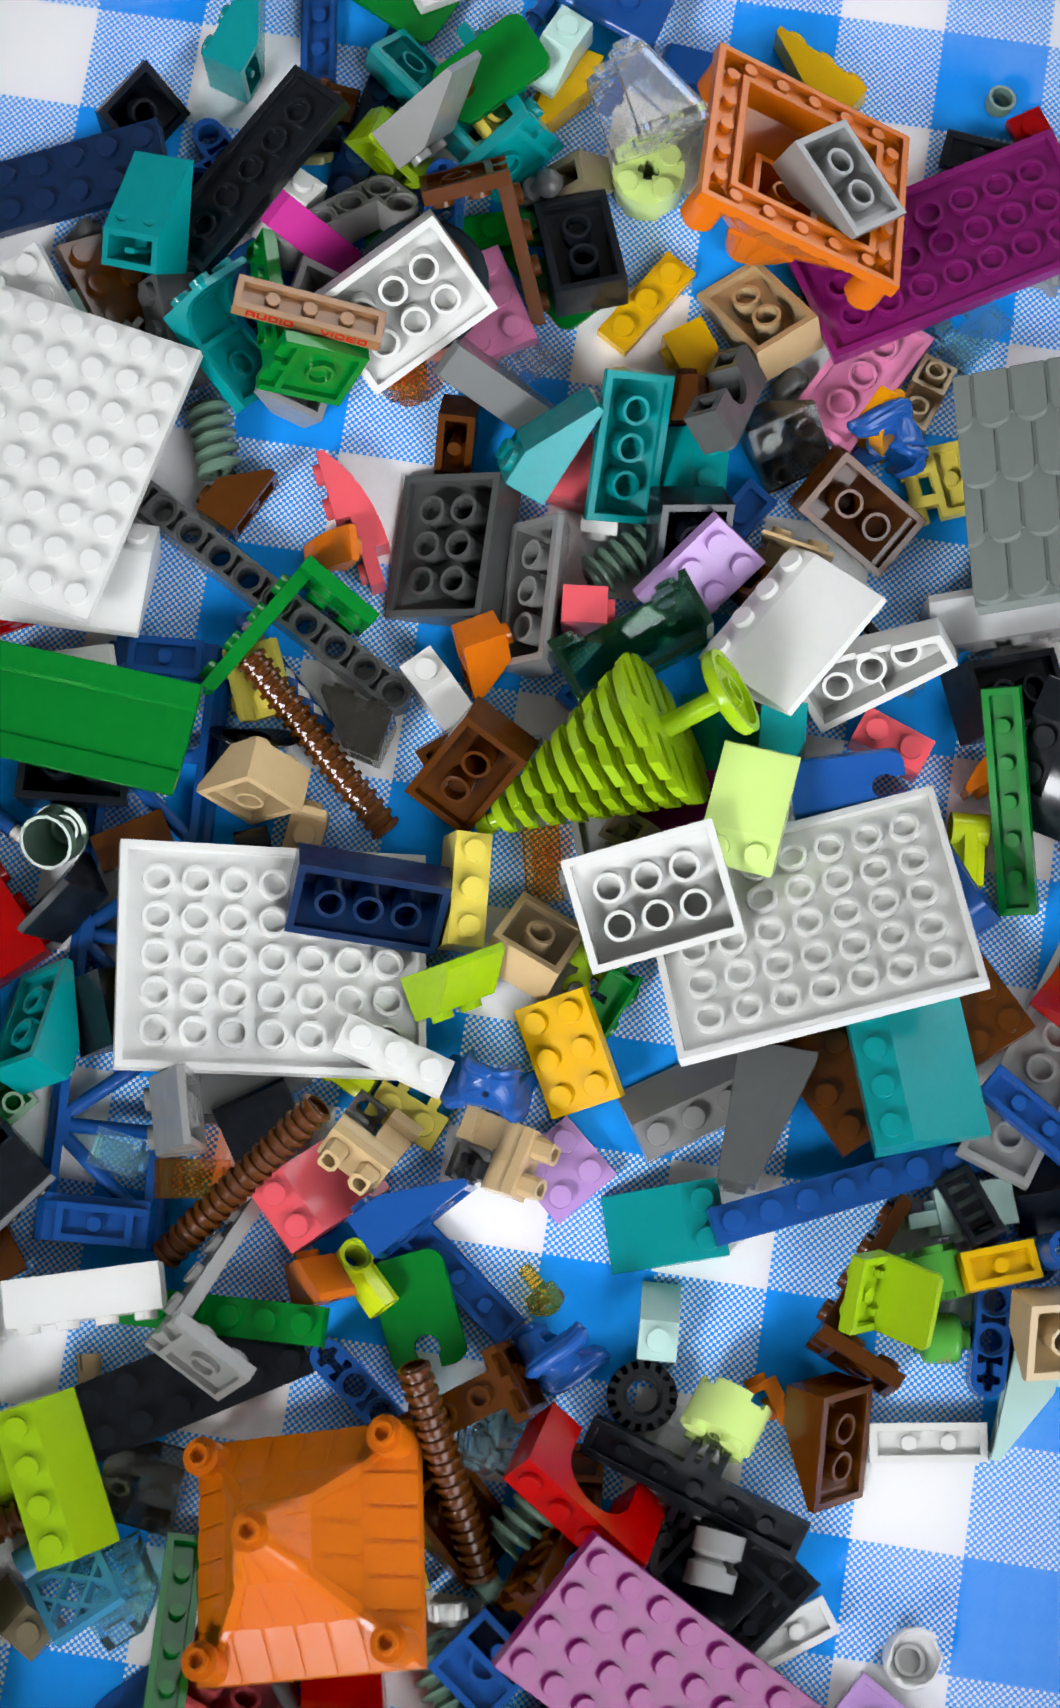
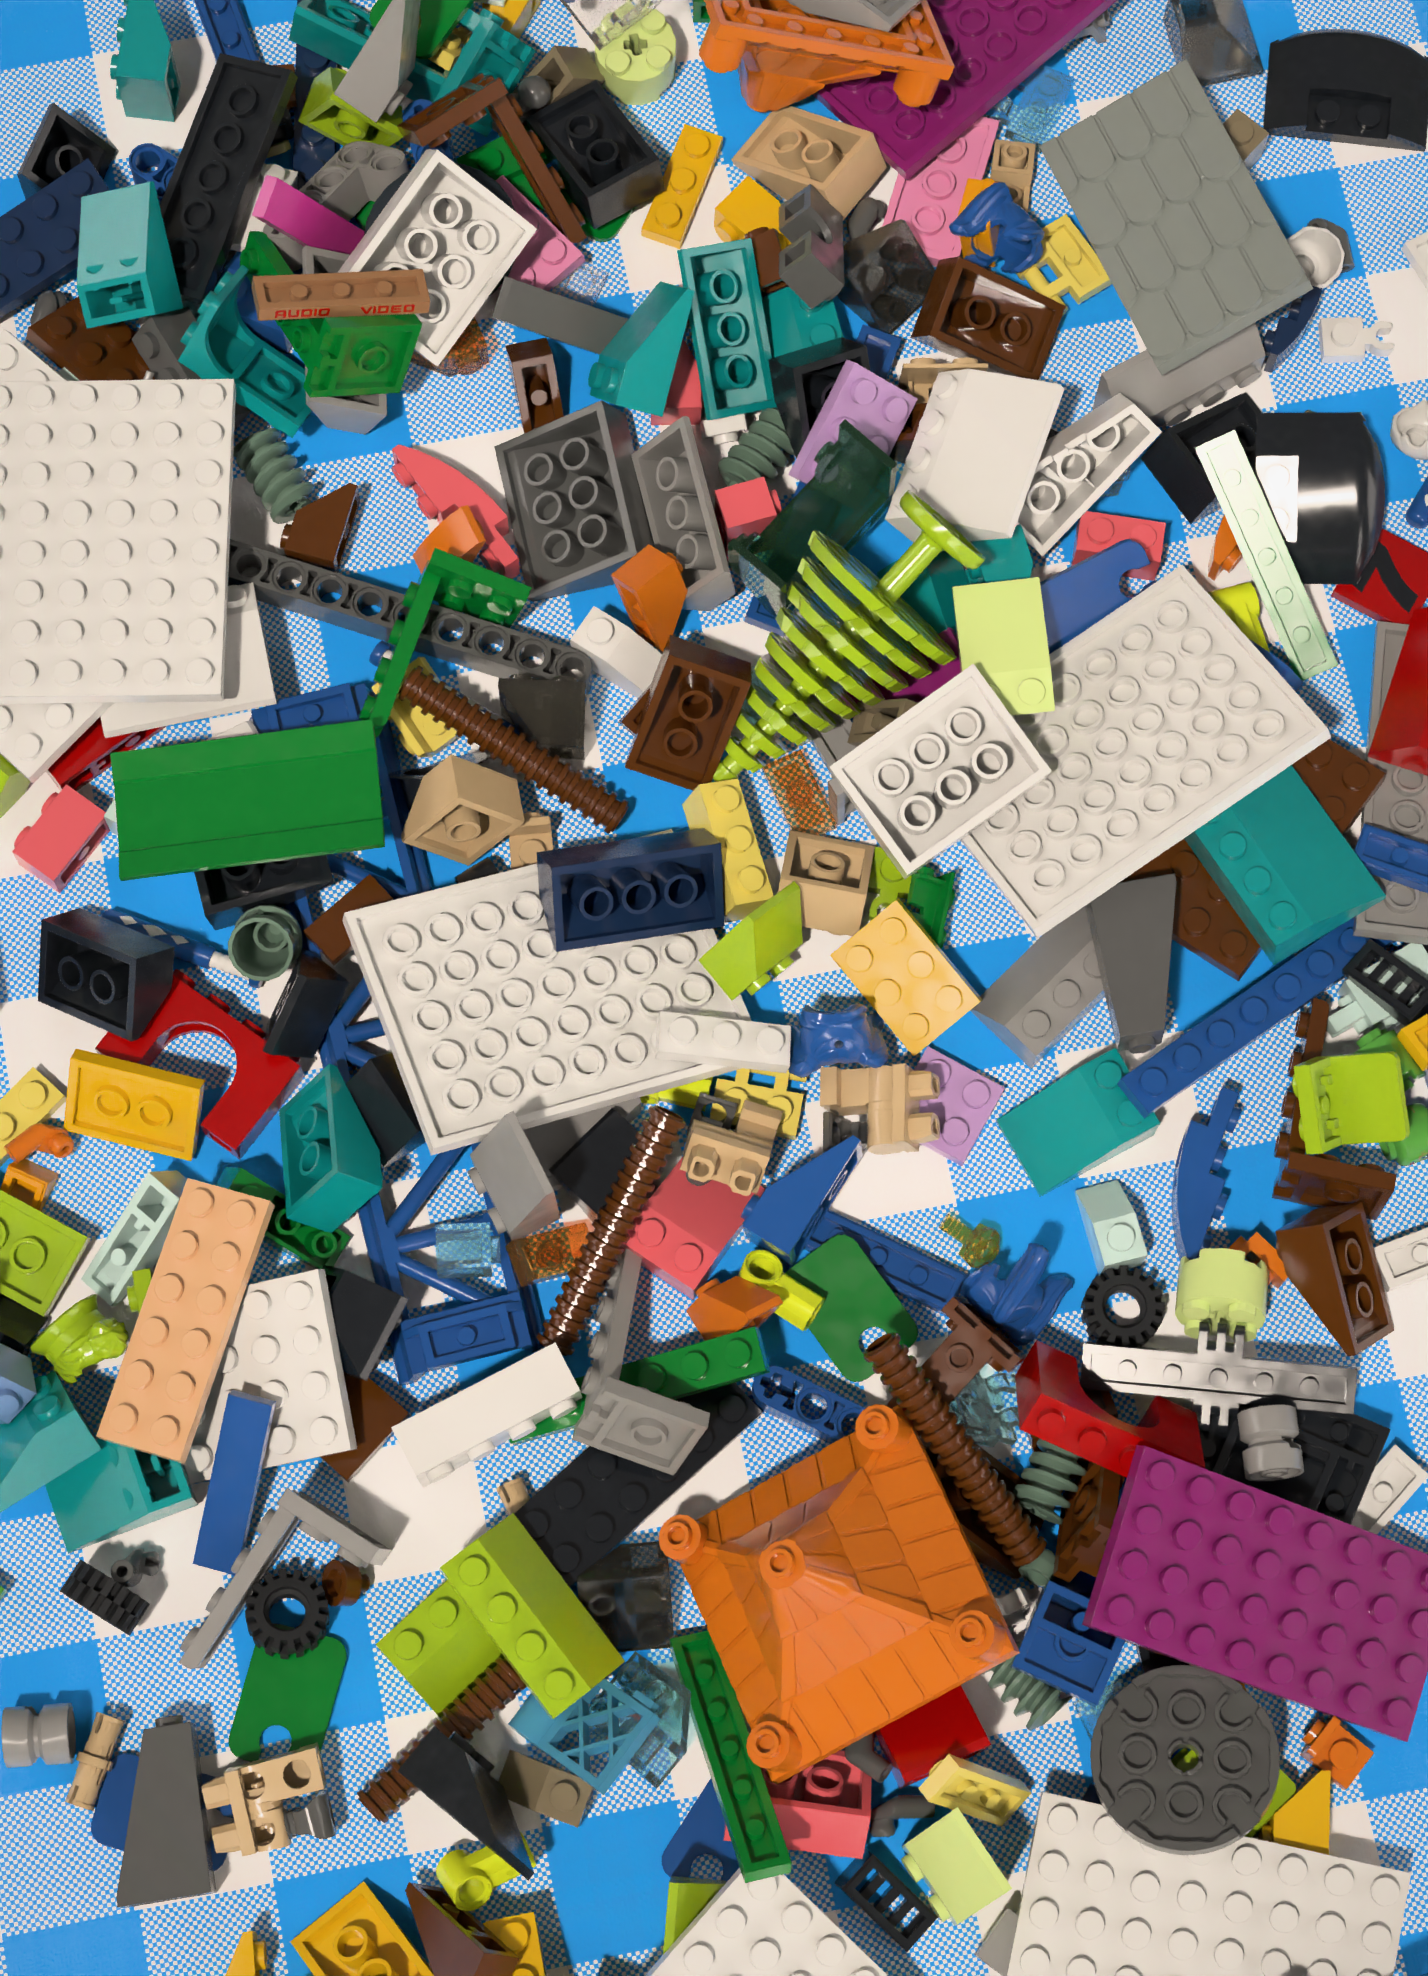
camera: 25 degrees left, 5 degrees down
(739, 1322) = (1195, 1190): none -> blue slope

